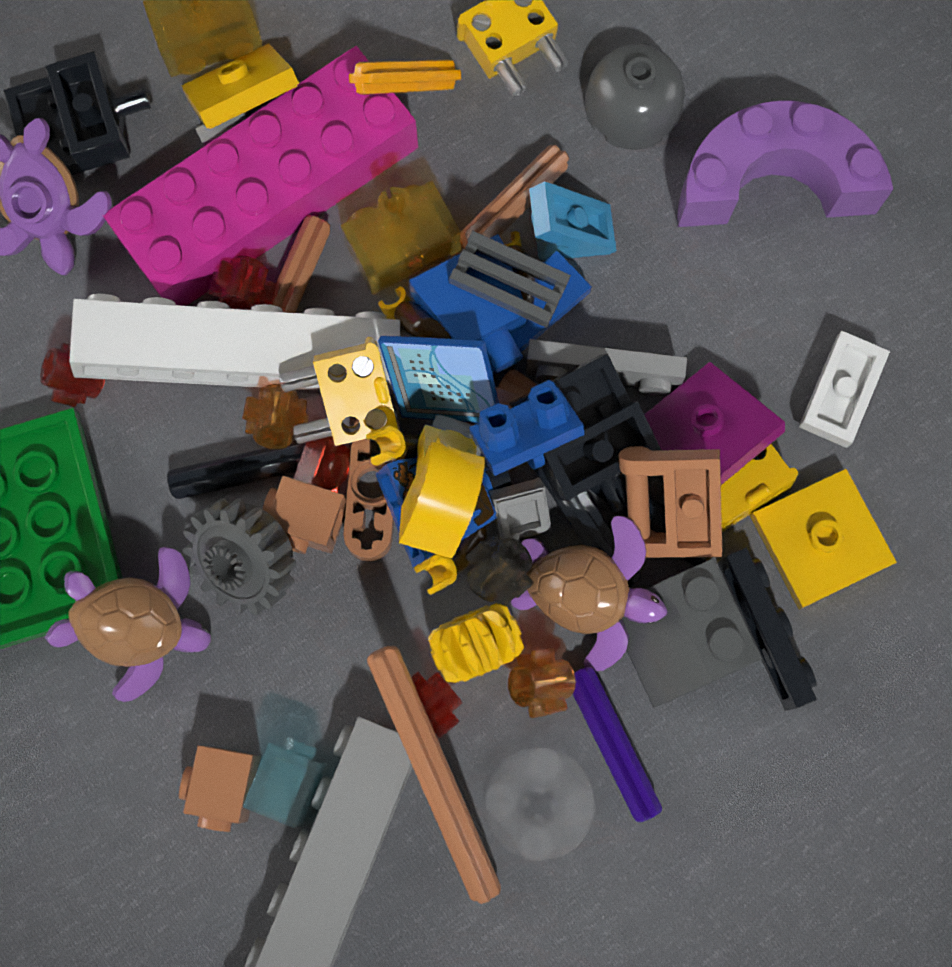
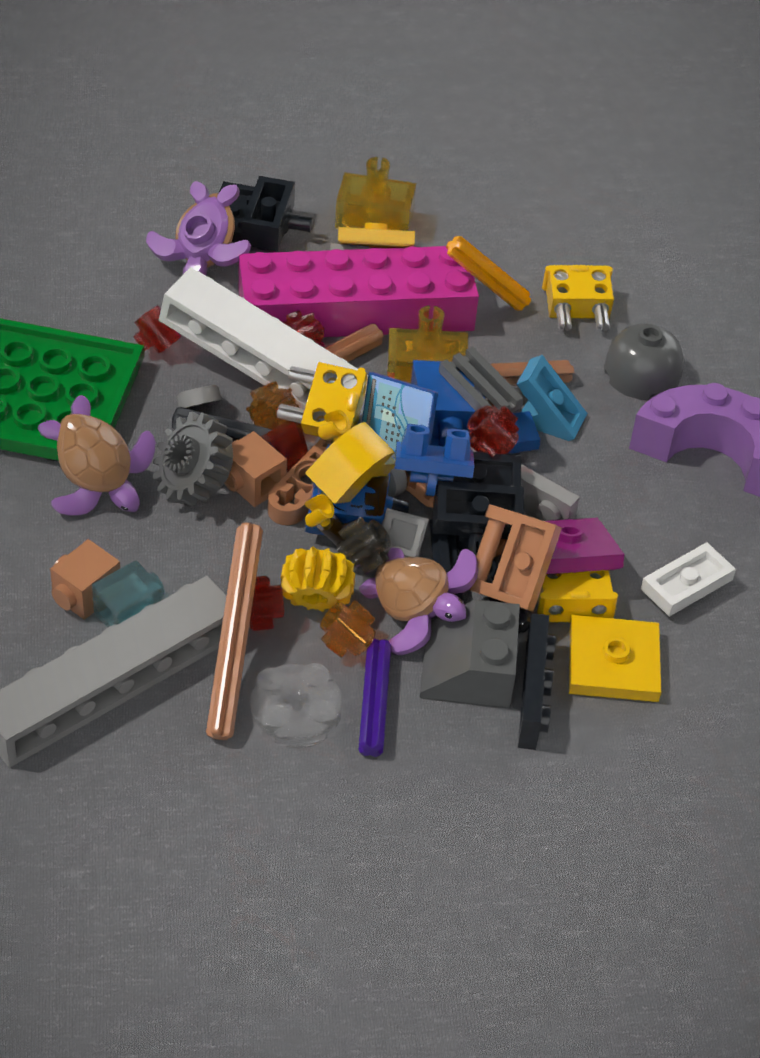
camera: 25 degrees right, 30 degrees down
(182, 444) = (199, 396): none -> light grey tile
(564, 344) = (493, 430): none -> clear red gear

